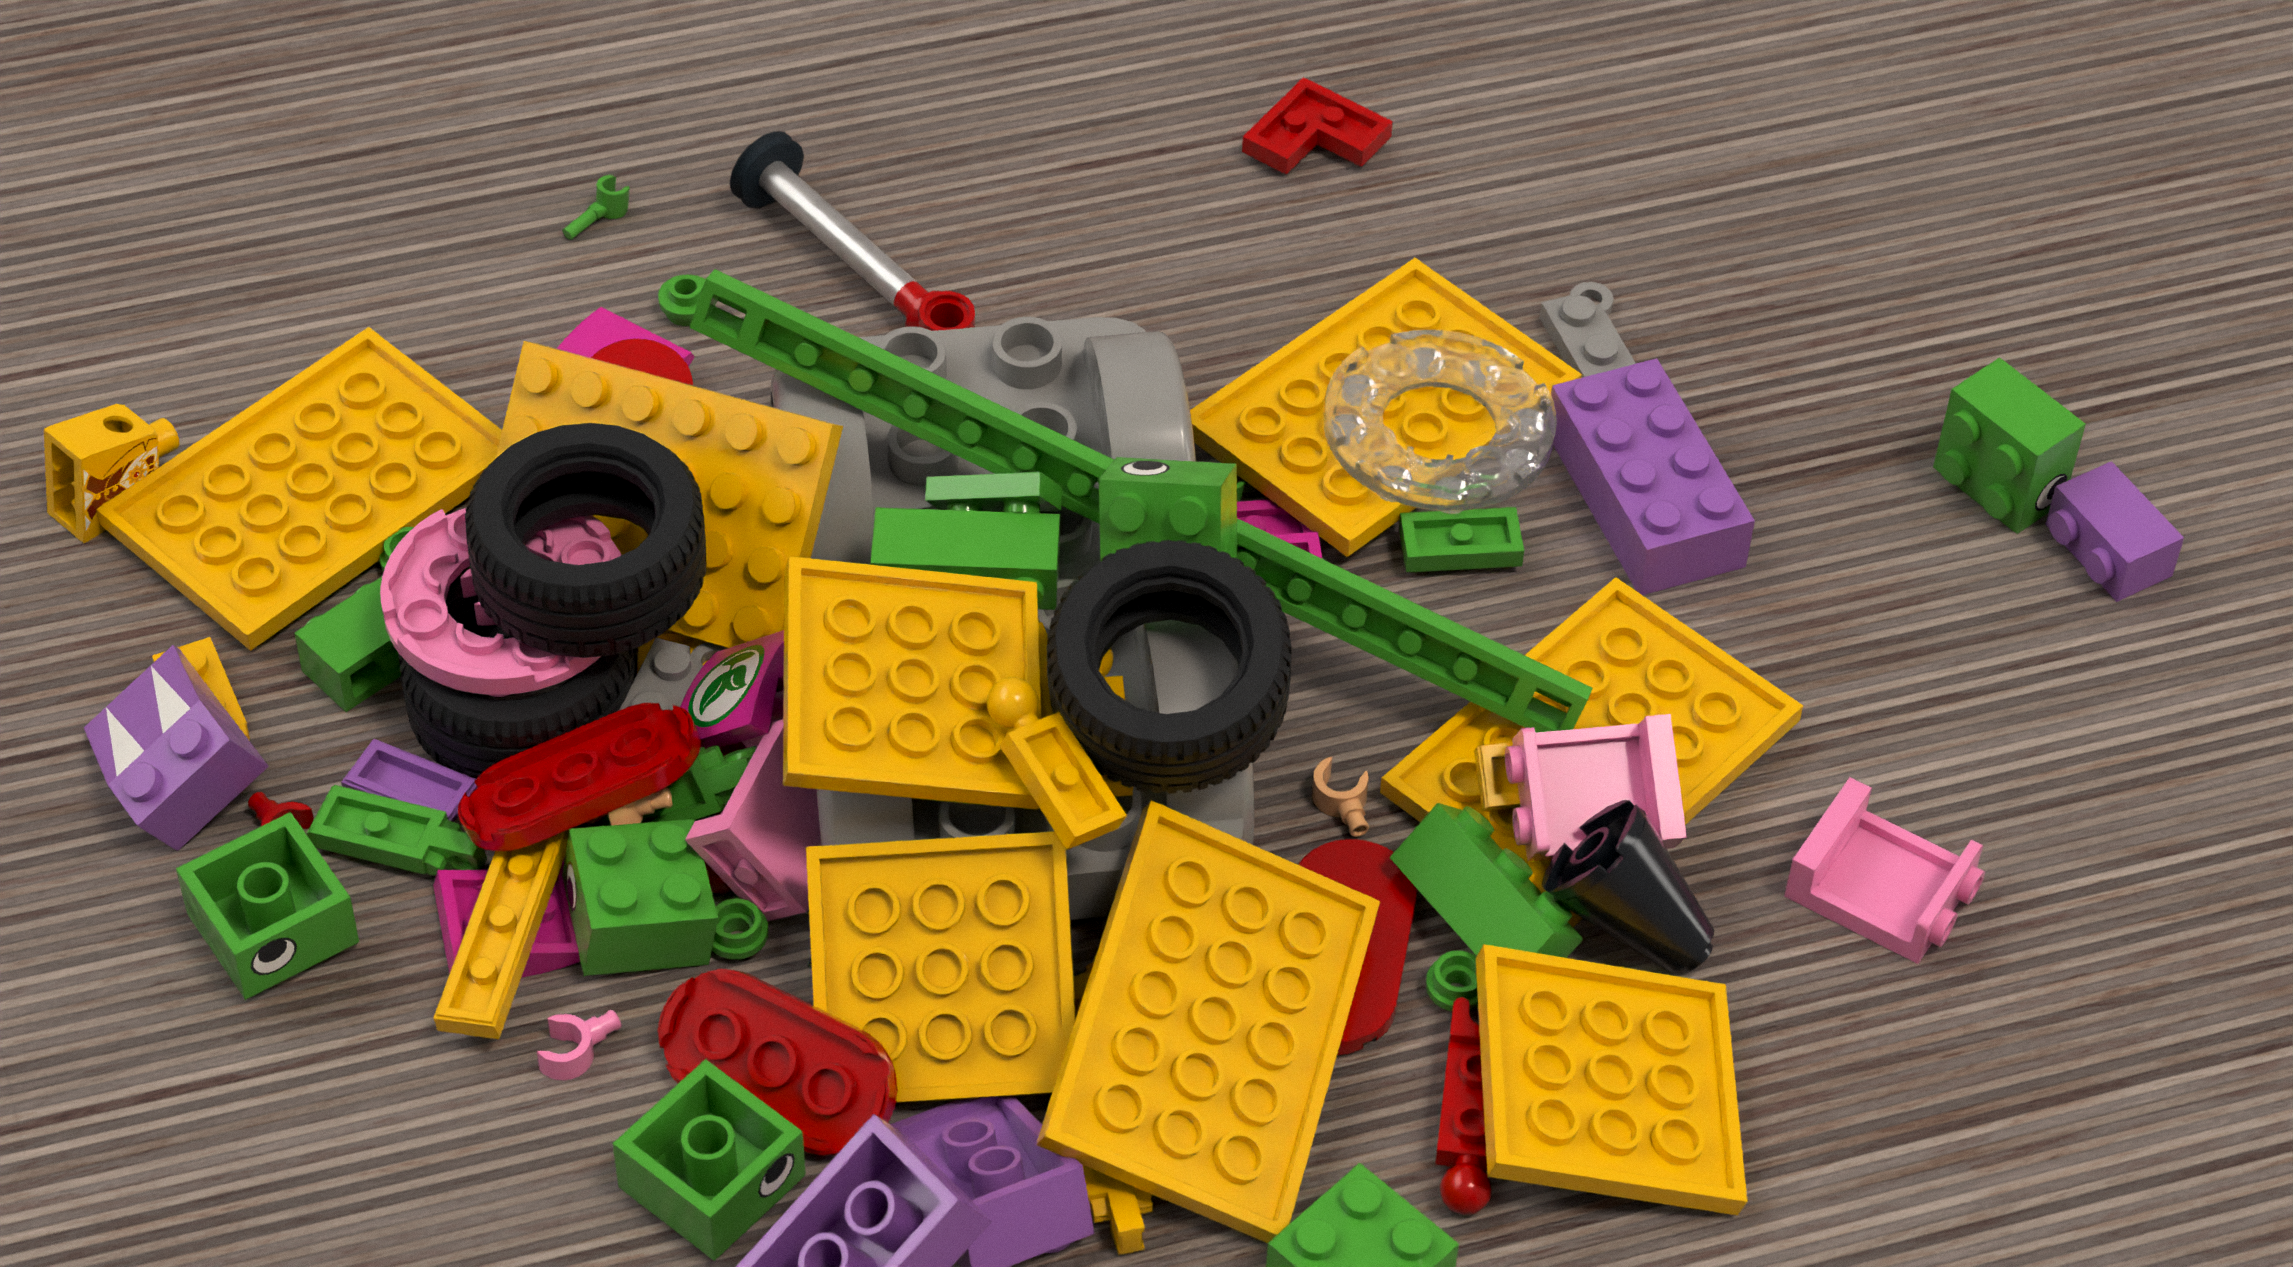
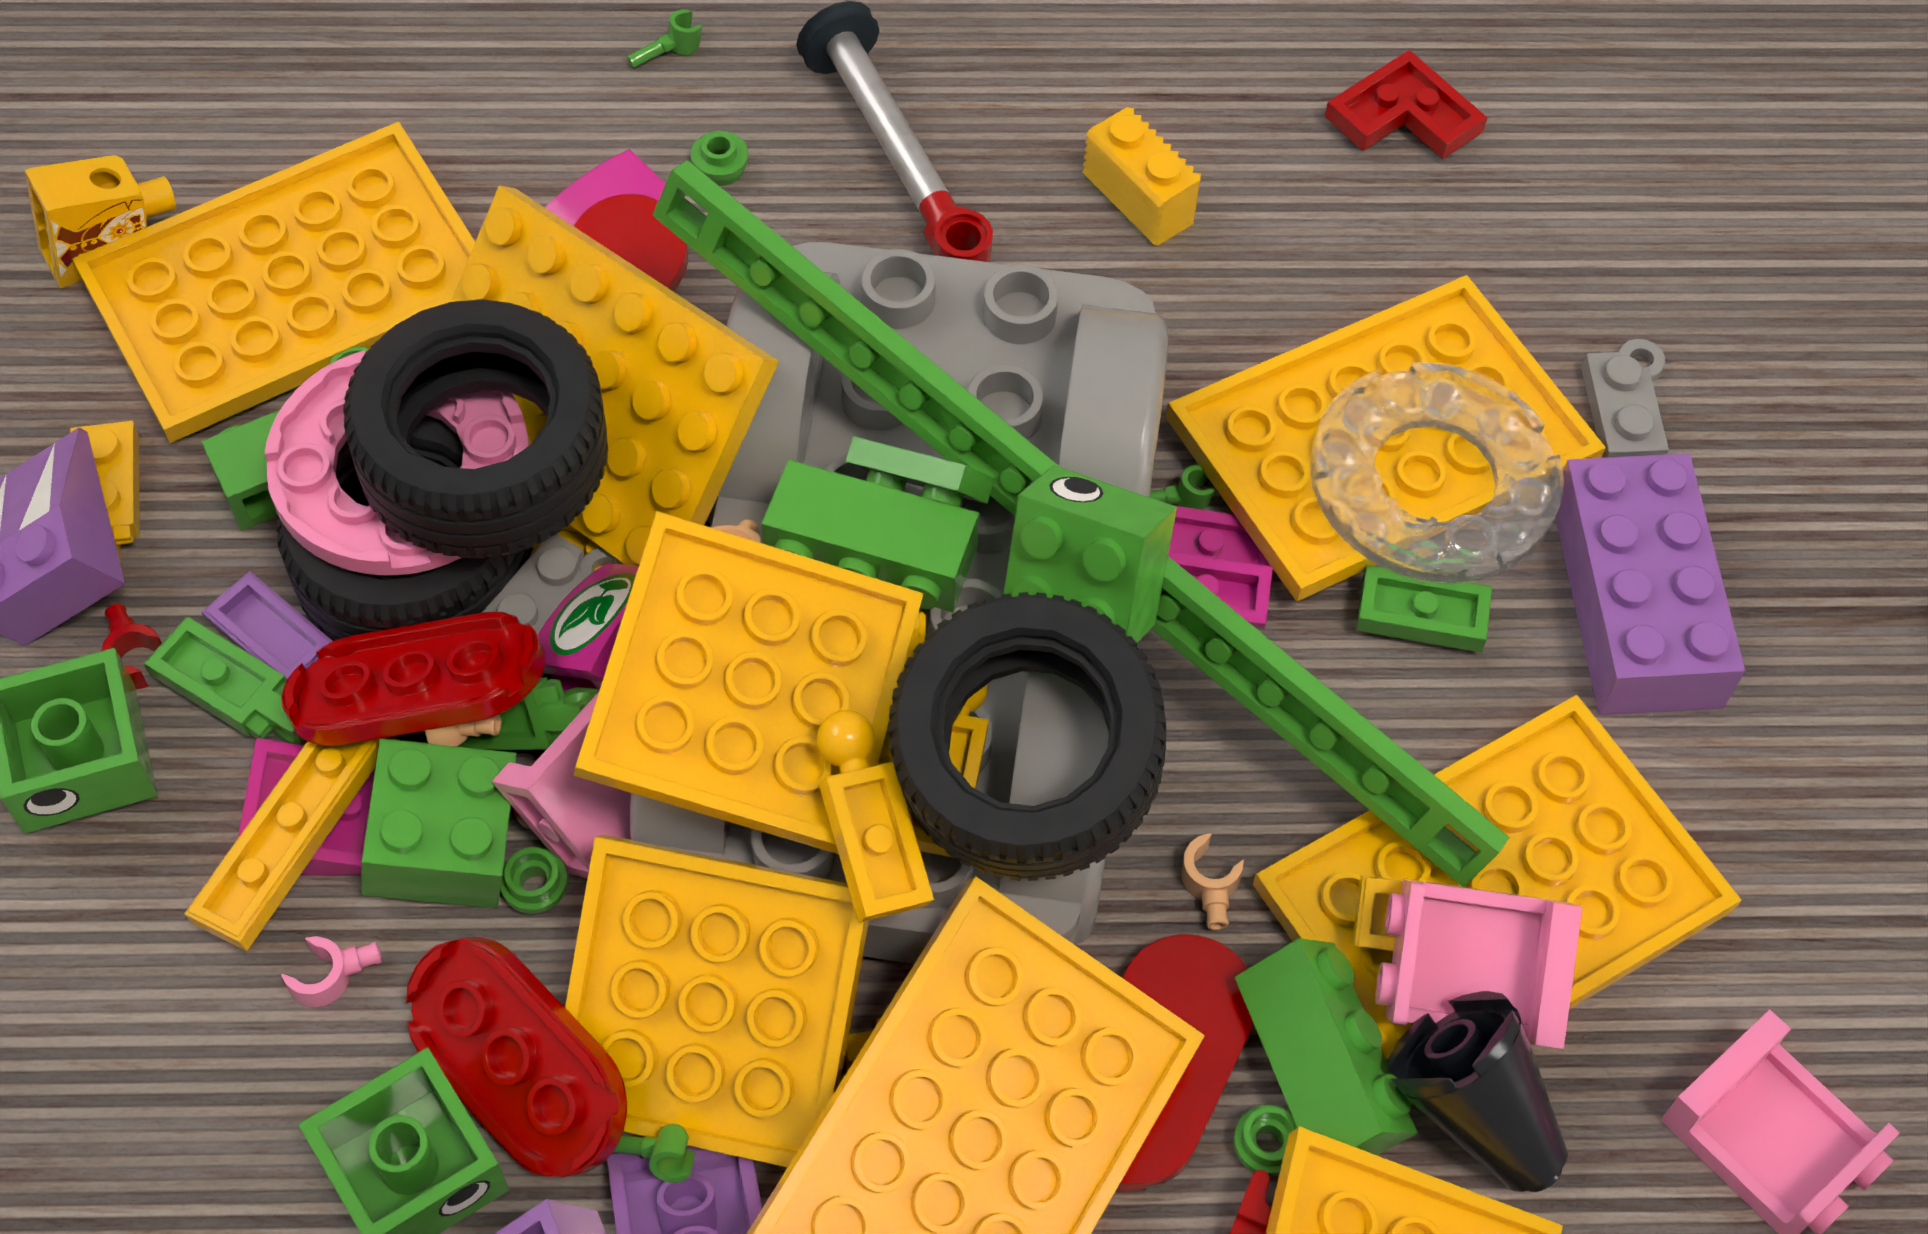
camera: 15 degrees right, 10 degrees up
(941, 1115) = (667, 1152): none -> bright green hand
(1092, 233) = (1141, 175): none -> yellow brick

